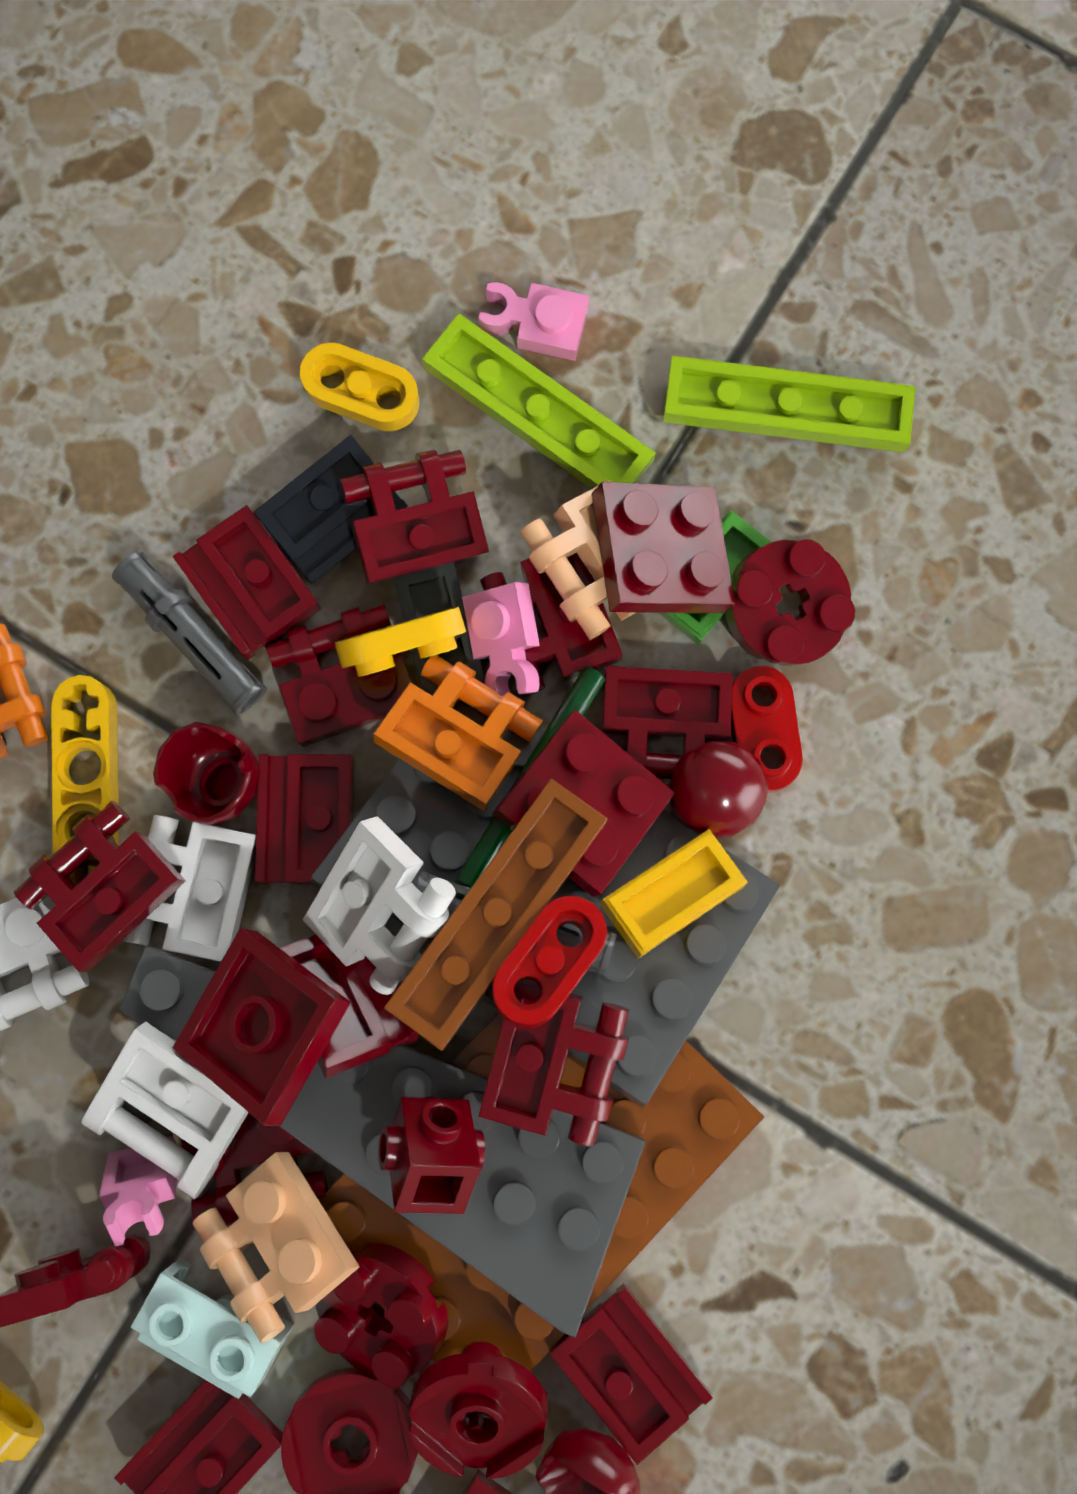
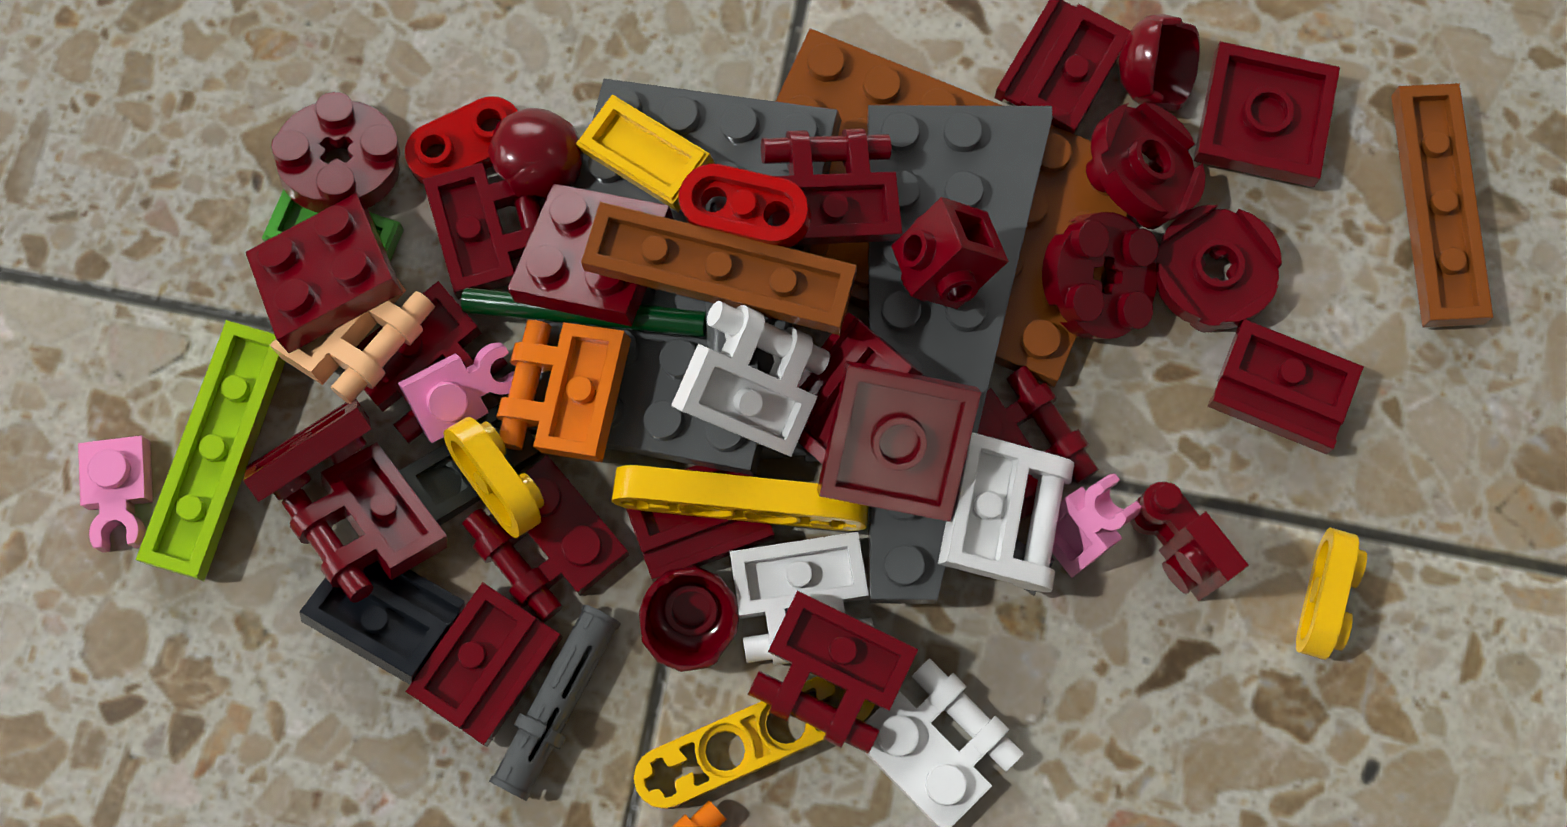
camera: 110 degrees left, 5 degrees down
(205, 1334) = (1181, 413): light aqua window -> none
(291, 1235) = (1067, 366): light nougat plate -> none
(298, 843) = (733, 498): none -> yellow beam
(363, 387) = (241, 634): yellow plate -> none
(498, 482) = (286, 465): none -> dark red plate
(789, 404) = (137, 222): lime plate -> none

